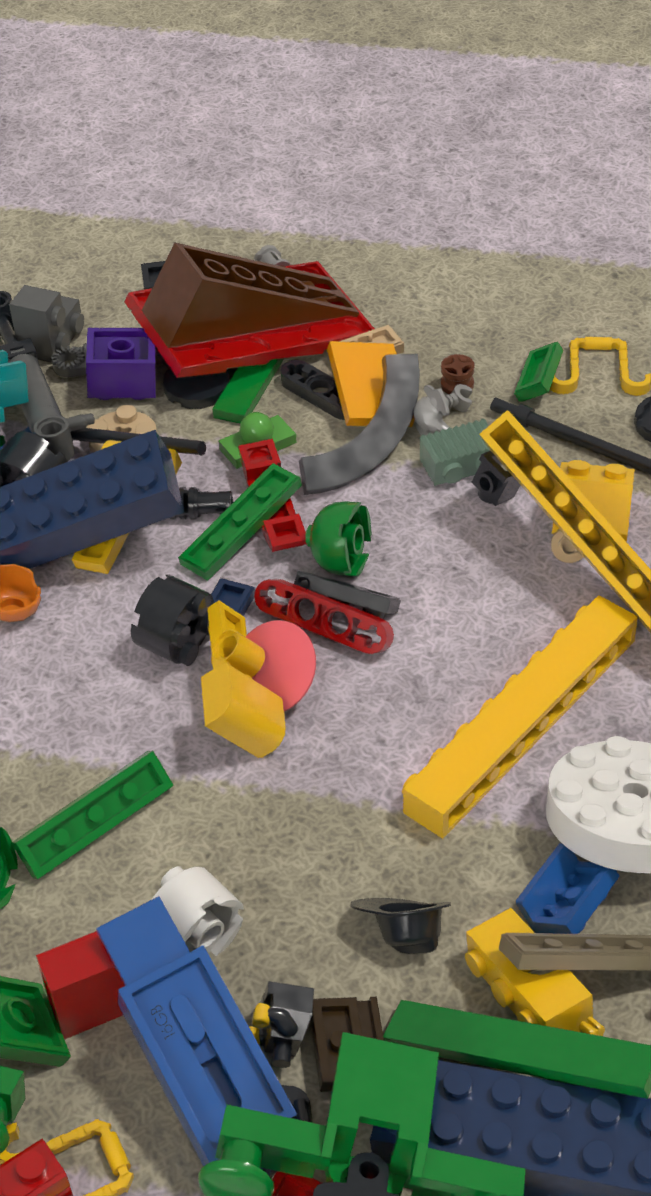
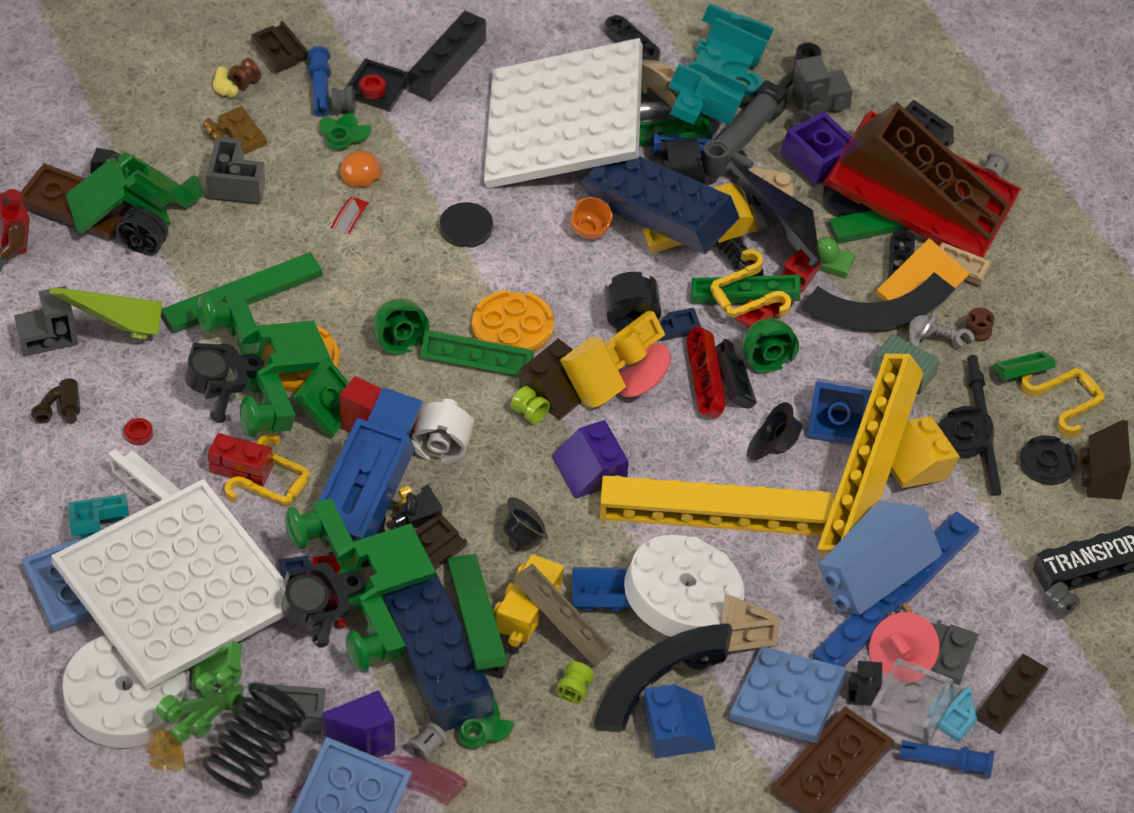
camera: 50 degrees right, 5 degrees up
(73, 753) = (513, 320): none -> light orange tile
(184, 427) = (792, 215): none -> black tile
(205, 763) = (549, 379): none -> dark brown slope
(211, 805) = (530, 405): none -> lime wheel
(249, 543) = (751, 270): none -> yellow piece
(358, 791) = (589, 457): none -> dark purple slope
(463, 603) = (776, 434): none -> black piece
(478, 534) = (837, 410): none -> blue slope
(590, 444) = (968, 430): none -> black tile

